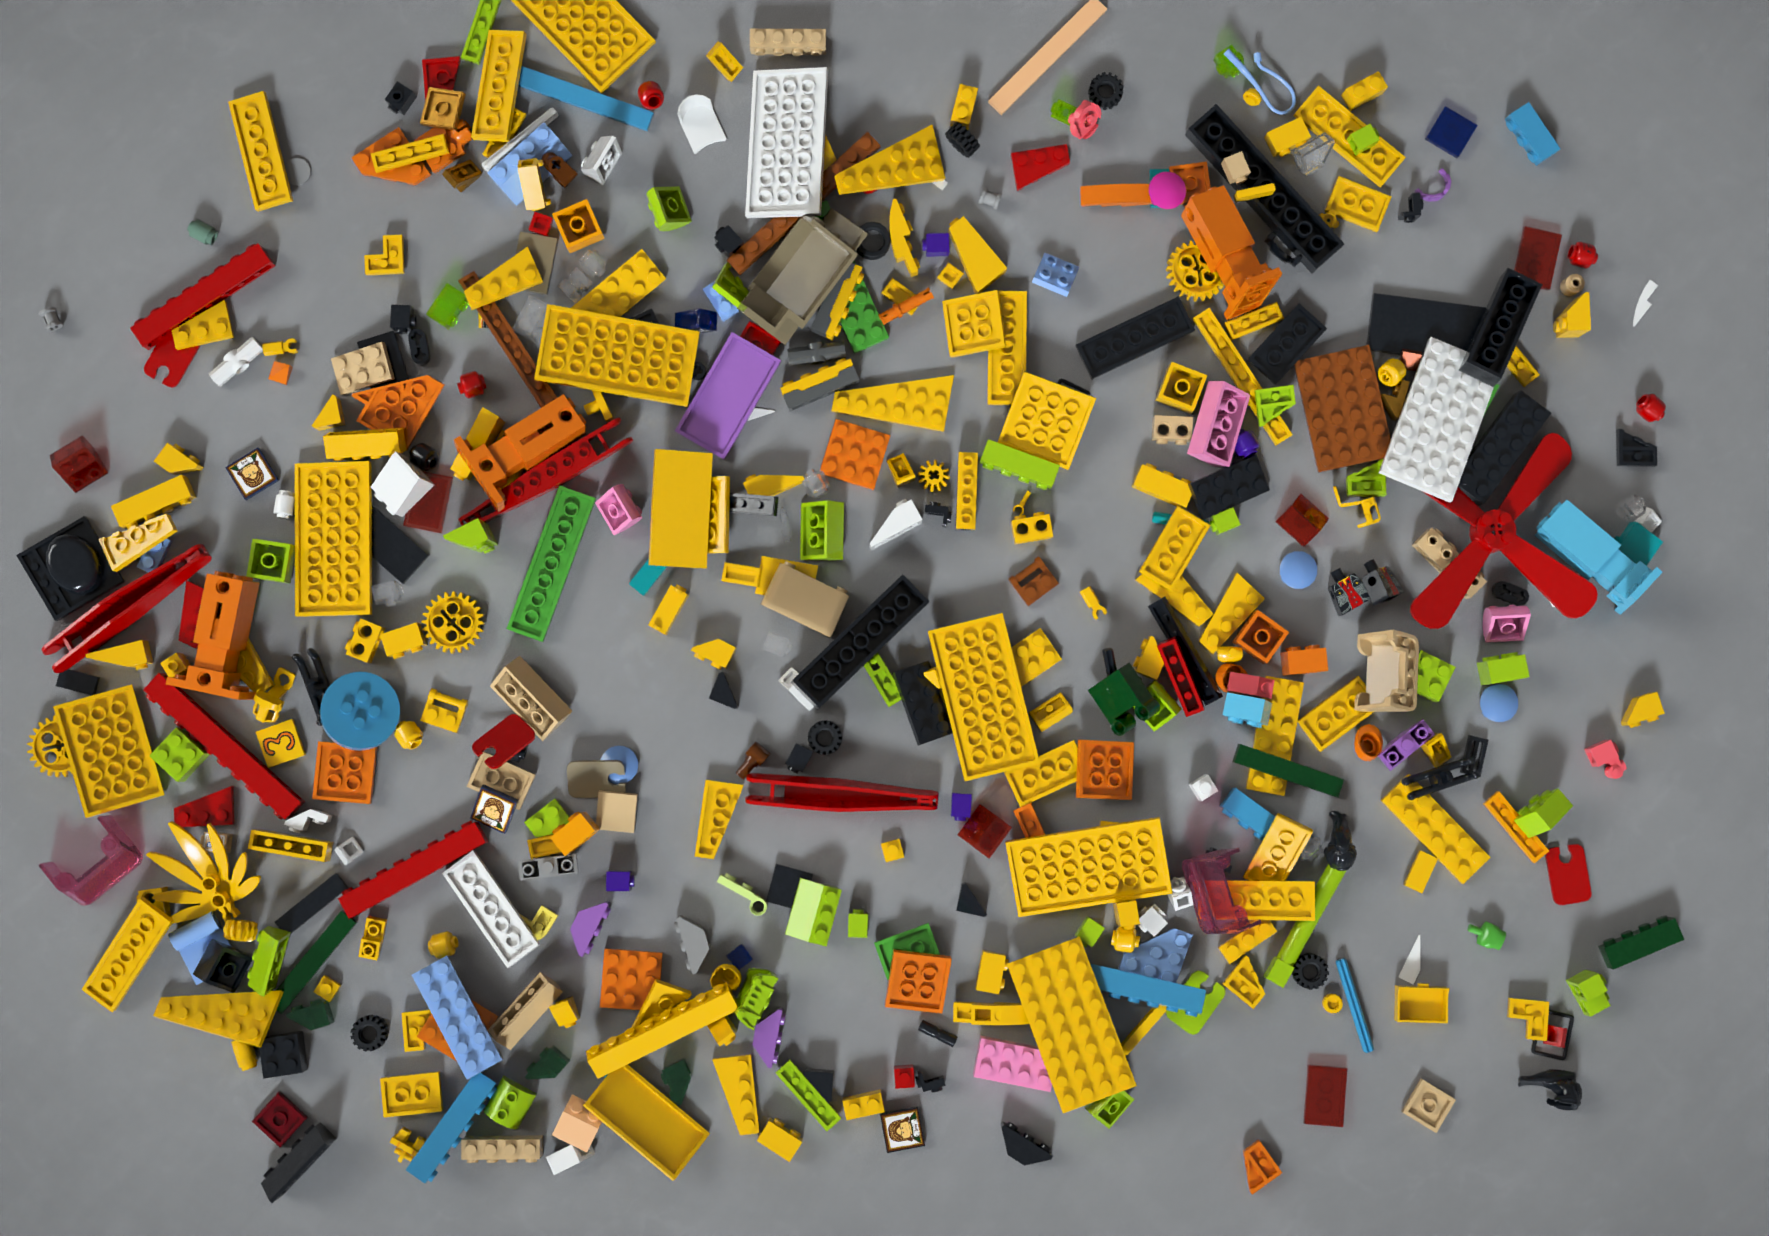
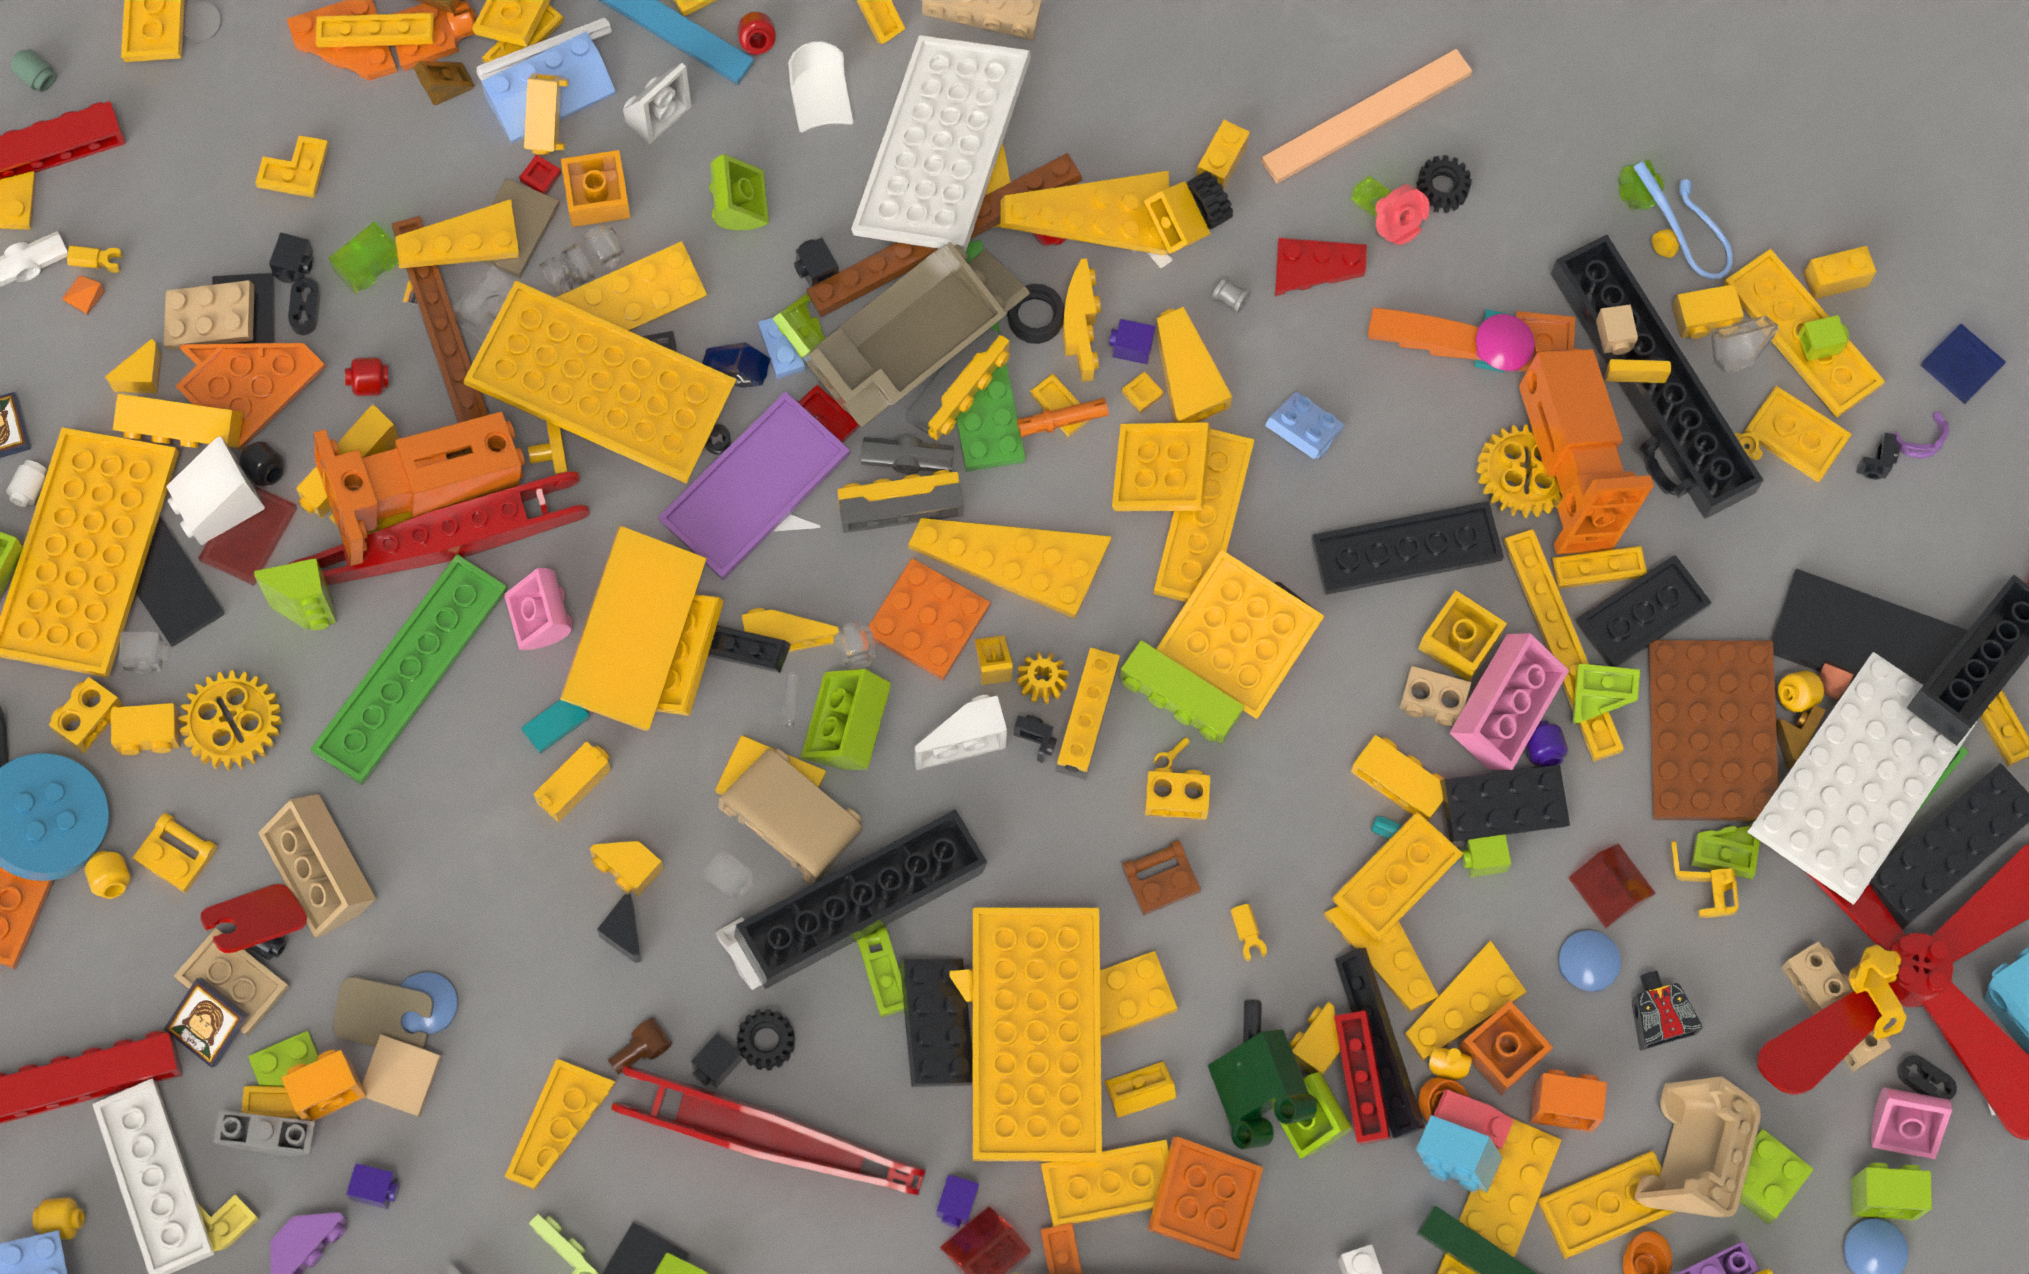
camera: 15 degrees right, 15 degrees down
(560, 170) = (592, 106): reddish brown piece -> none
(741, 574) = (702, 756): yellow tile -> none
(892, 850) = (828, 1248): yellow plate -> none
(945, 157) = (1177, 217): none -> yellow brick
(1380, 583) = (1718, 1010): black torso -> none
(1471, 545) = (1872, 975): none -> yellow piece

